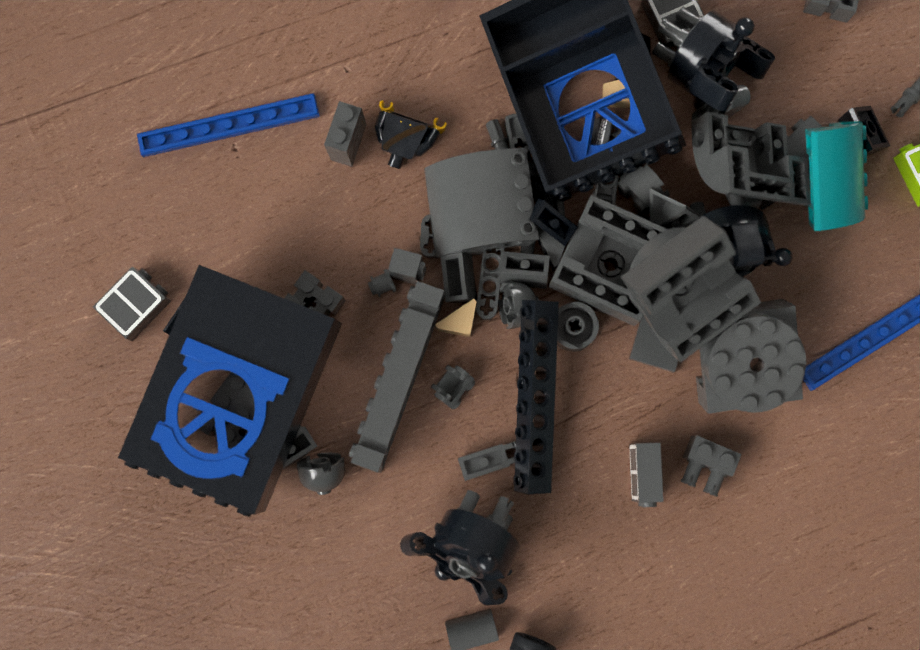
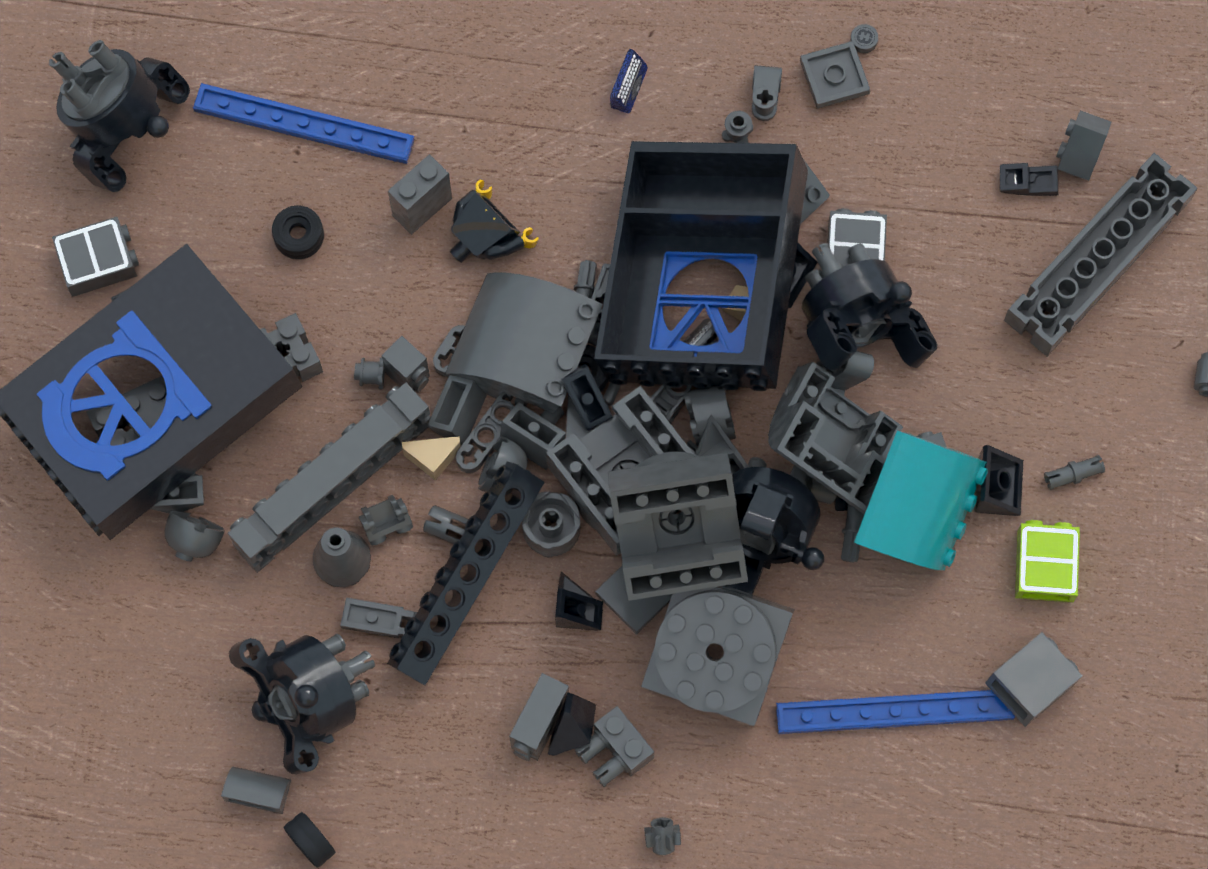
camera: 25 degrees right, 10 degrees down
(79, 183) = (111, 101): none -> black piece
(267, 195) = (290, 218): none -> black tyre
(444, 438) = (341, 557): none -> dark grey cone
(495, 366) = (446, 518): none -> dark grey arm
(621, 375) = (576, 607): none -> black slope
(674, 466) = (572, 725): none -> black slope
(776, 509) = (662, 836): none -> dark grey gear
(785, 221) = (851, 550): none -> dark grey axle

